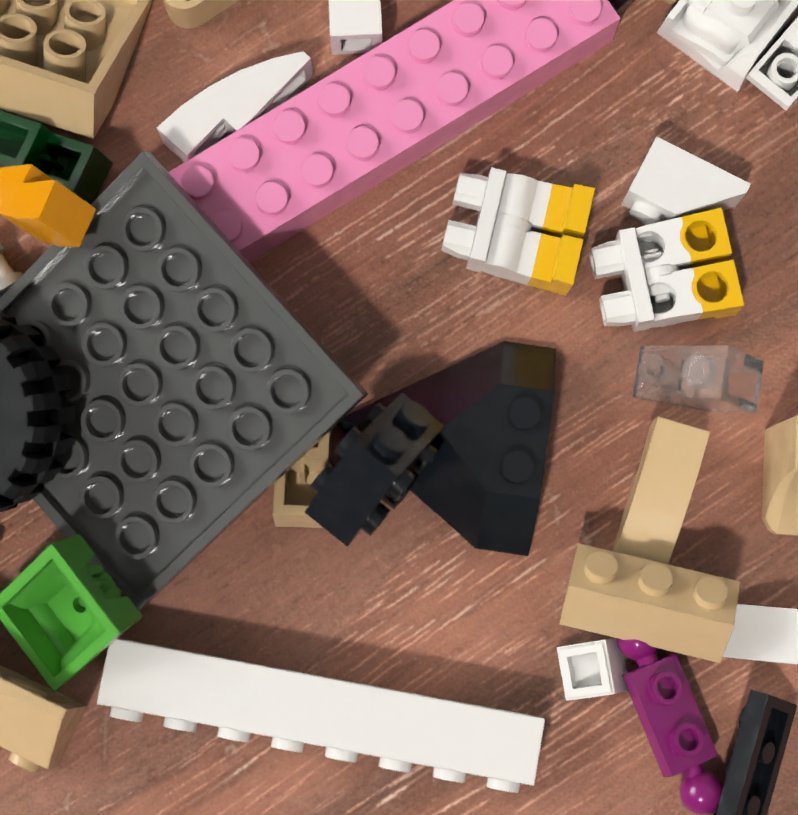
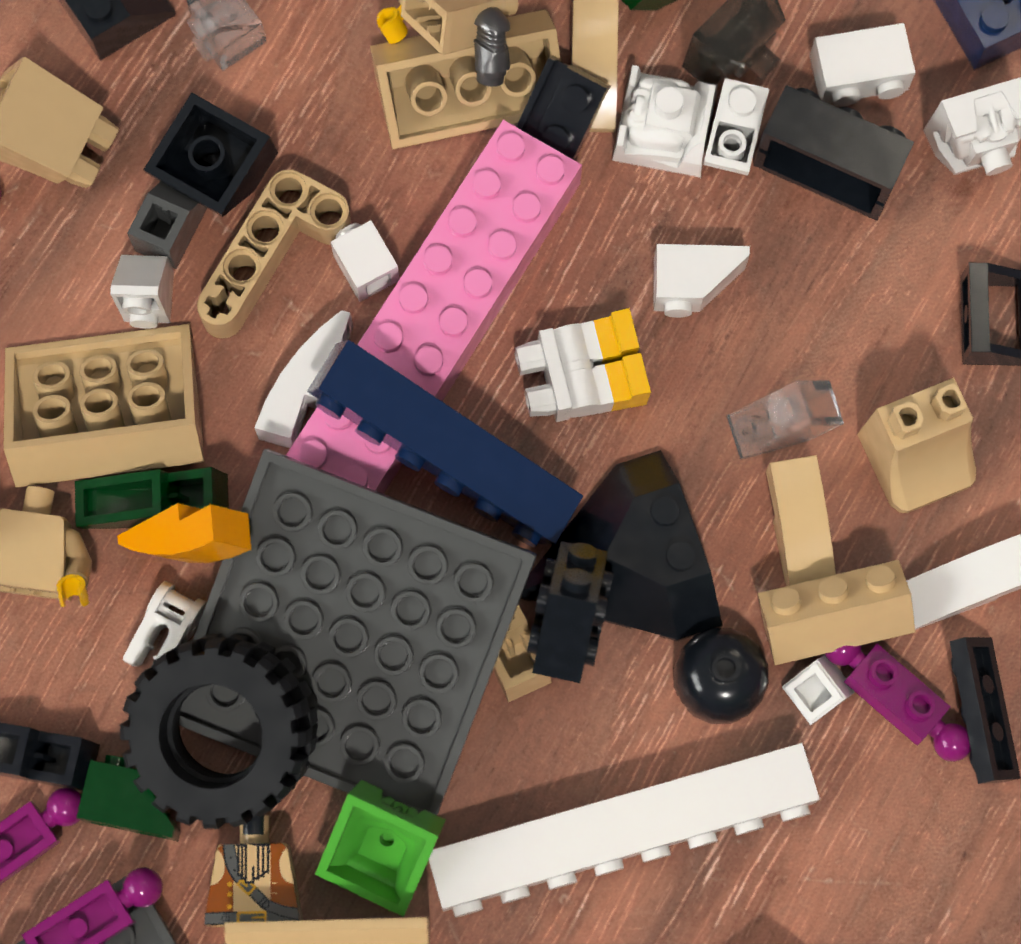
camera: 25 degrees left, 5 degrees down
(333, 233) = (443, 443): none -> dark blue brick
(500, 606) = (721, 675): none -> black cylinder
(669, 272) = (714, 353): white hips -> none

